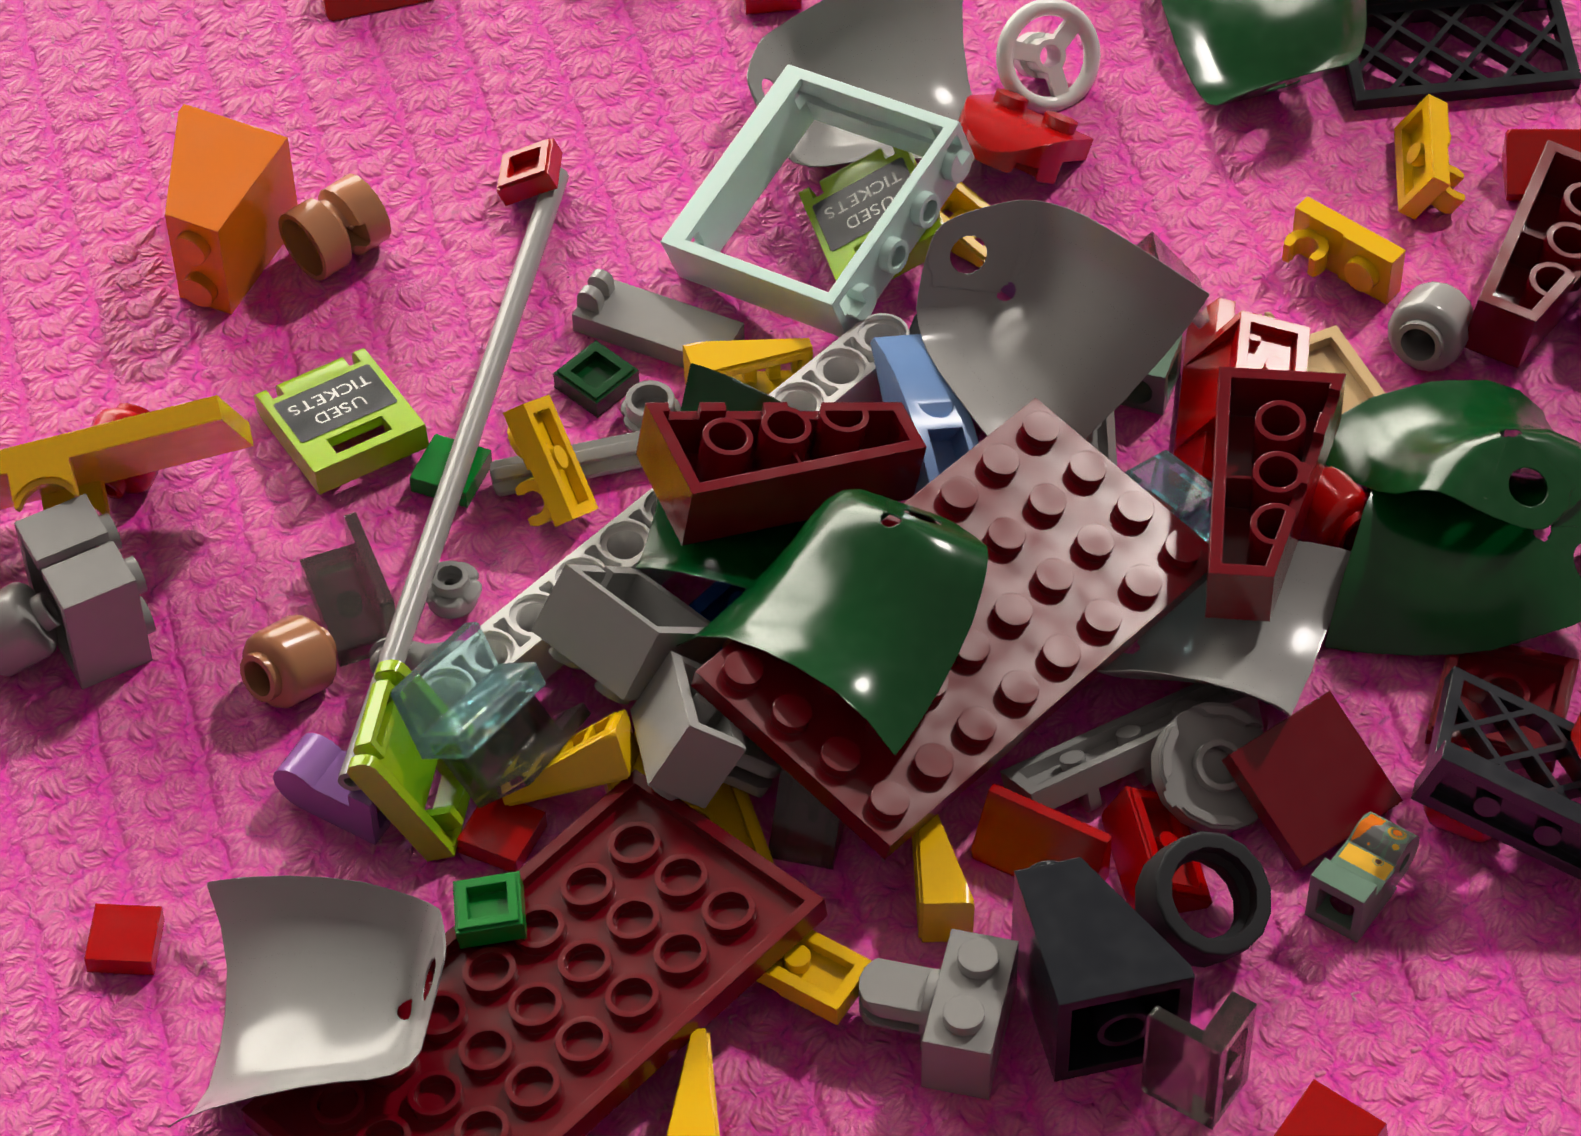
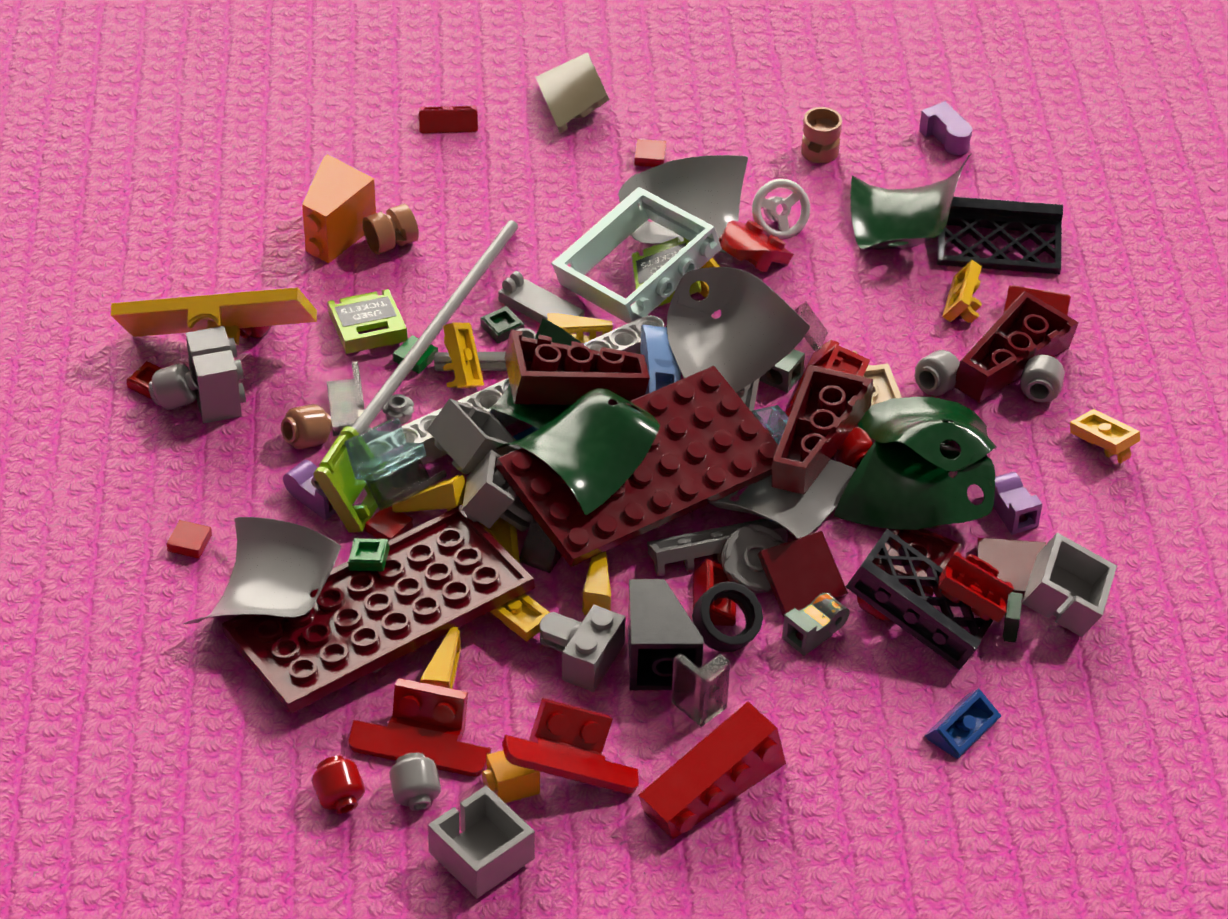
camera: 10 degrees right, 5 degrees down
(529, 171) = (497, 220): red tile -> none
(1022, 832) = (646, 565): red slope -> none
(1346, 249) = (906, 328): yellow plate -> none

